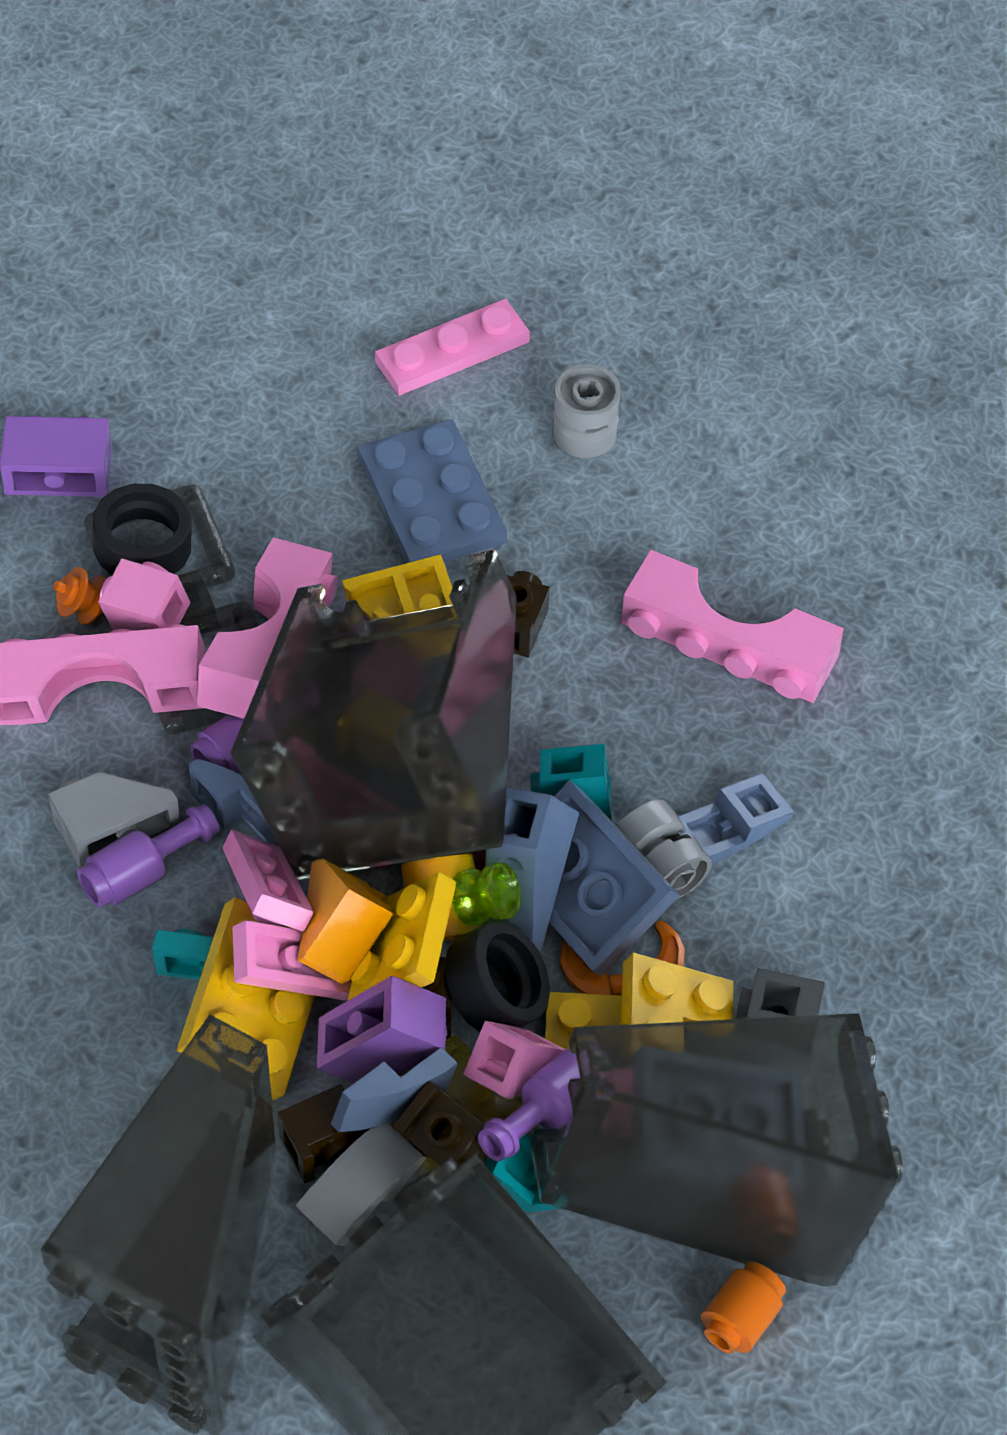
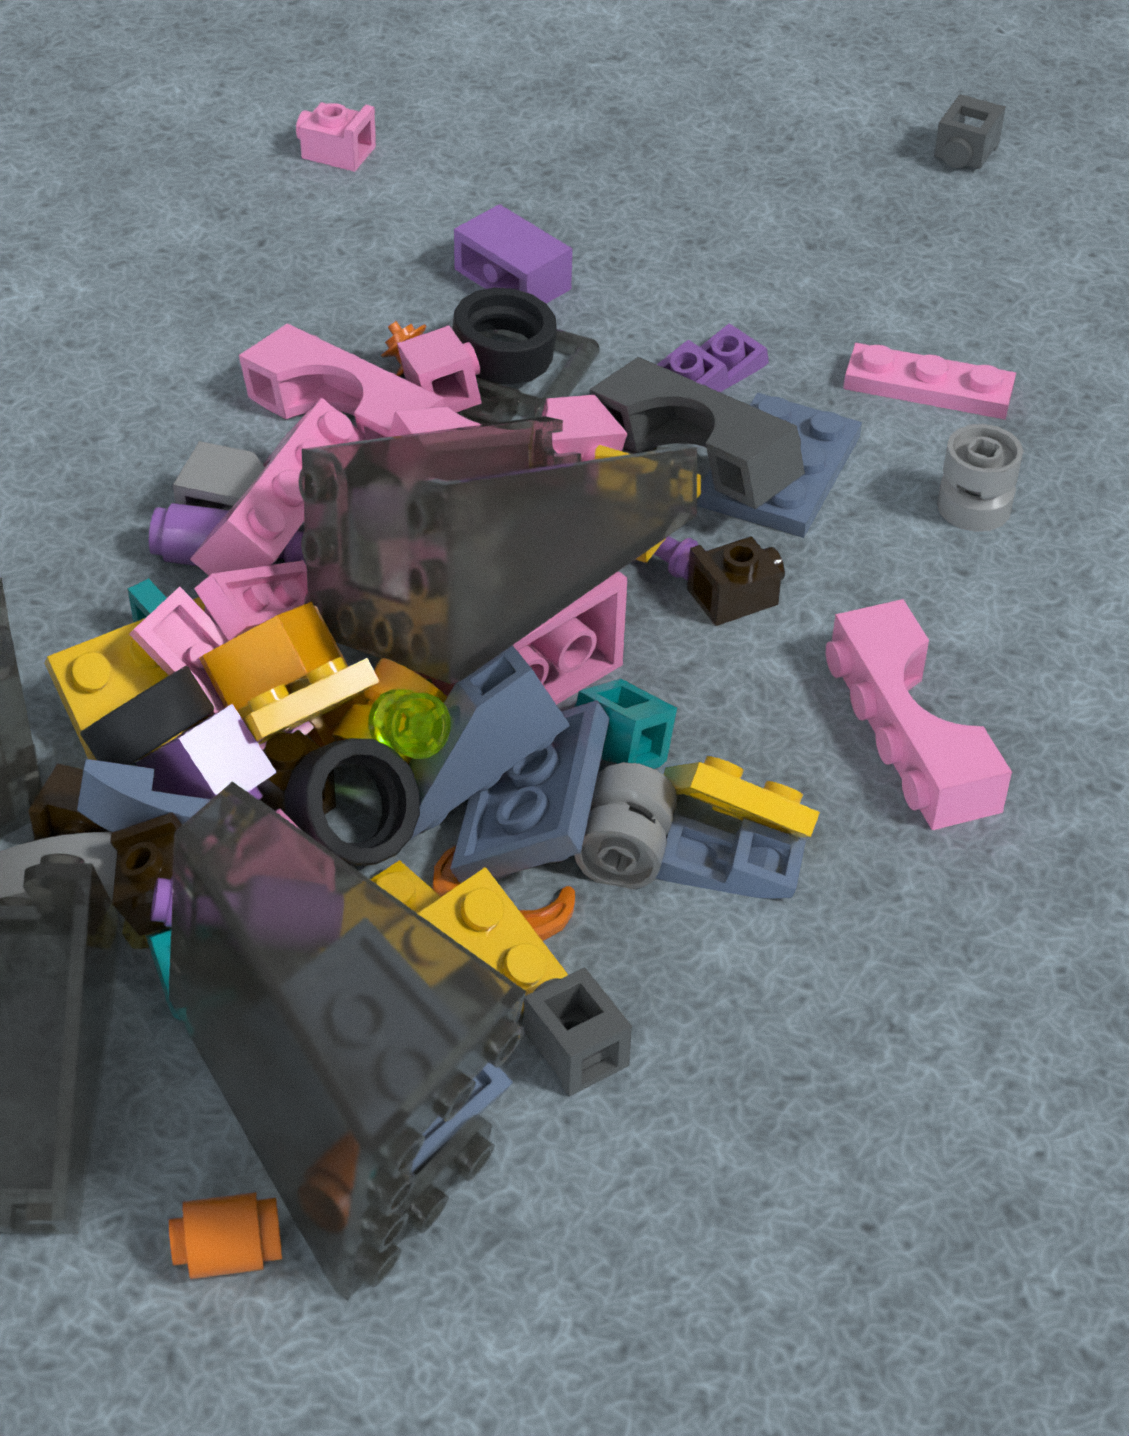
camera: 45 degrees right, 10 degrees down
(191, 833) = (272, 506): none -> bright pink arch
(253, 106) = (966, 144): none -> dark grey brick
(295, 445) = (720, 360): none -> medium lavender slope
(336, 1042) = (148, 719): none -> black tyre
(436, 504) = (747, 448): none -> dark grey arch
(698, 777) = (721, 786): none -> yellow wing

